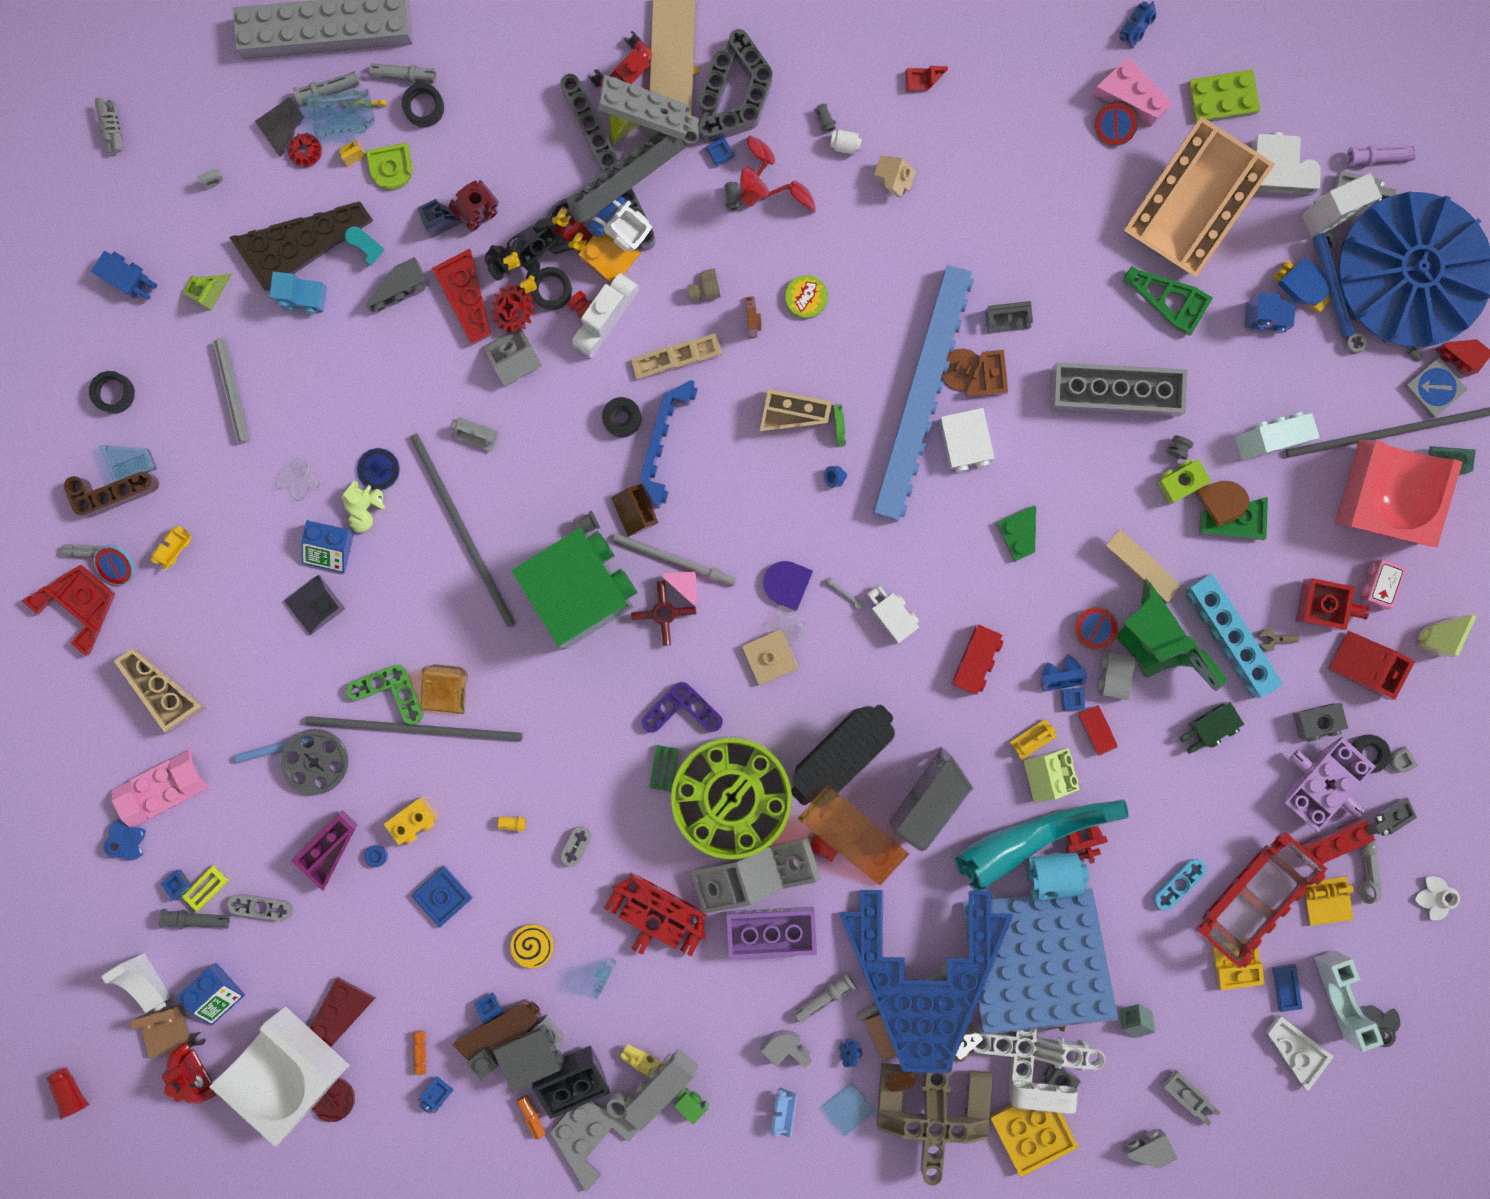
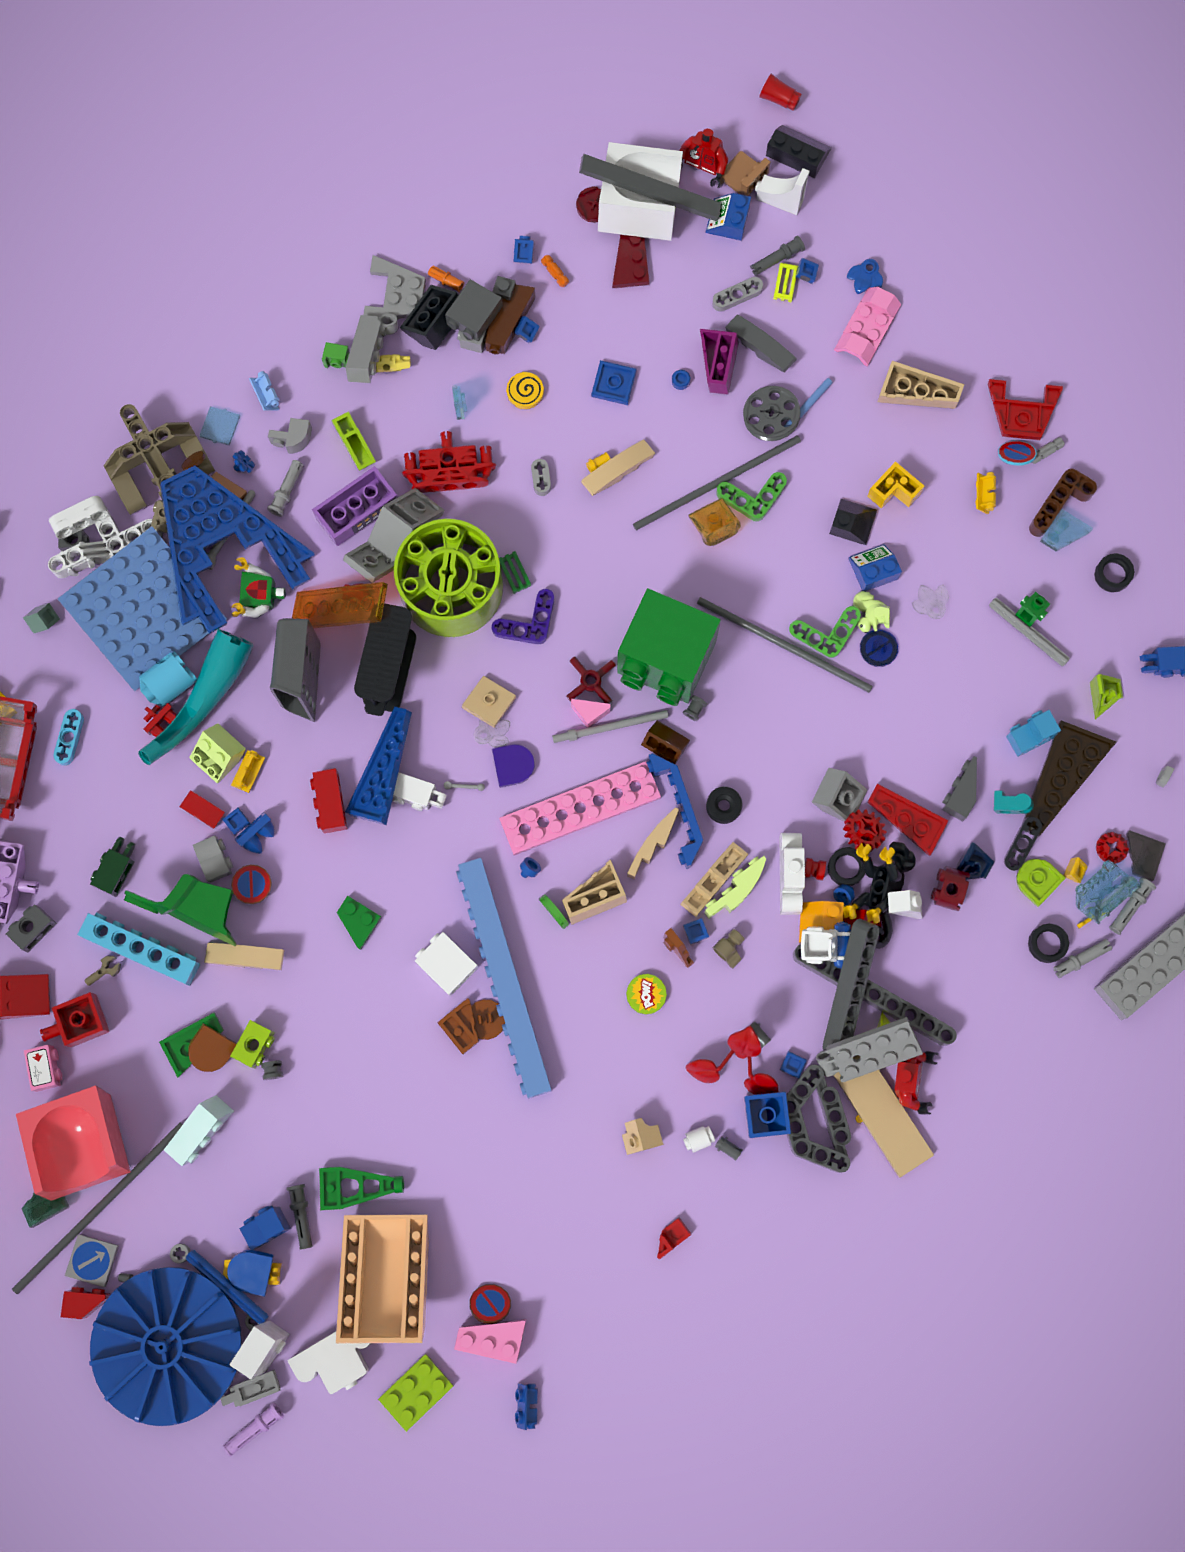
camera: 145 degrees right, 10 degrees down
(93, 1019) = (797, 150): none -> black slope
(212, 406) = (1033, 609): none -> green brick
(248, 611) = (896, 483): none -> yellow brick
(269, 1070) = (649, 187): none -> dark grey tile
(274, 839) = (761, 343): none -> dark grey slope
(384, 195) = (1035, 833): none -> black beam
(411, 821) = (672, 418): yellow brick -> none
(415, 504) = (833, 638): none -> bright green beam
(474, 434) = (826, 719): light grey hinge -> none
(497, 805) = (617, 467): none -> tan slope
(525, 211) = (905, 903): none -> white slope
(571, 265) = (844, 894): none -> blue tile
(652, 333) = (743, 882): none -> yellowish green slope
(701, 427) = (657, 837): none -> tan slope
(725, 321) = (695, 931): none -> blue plate
(730, 1003) = (353, 441): none -> lime slope
(749, 488) = (576, 821): none -> bright pink plate
(774, 120) = (767, 1115): none -> blue slope
(918, 910) = (256, 591): none -> torso
(924, 644) = (377, 785): none -> blue wing
(1009, 317) = (475, 1084): dark grey hinge -> none
(1033, 1137) = (68, 486): yellow plate -> none
(1118, 389) = (349, 1082): light grey brick -> none
(1229, 312) = (299, 1205): none -> dark grey pin

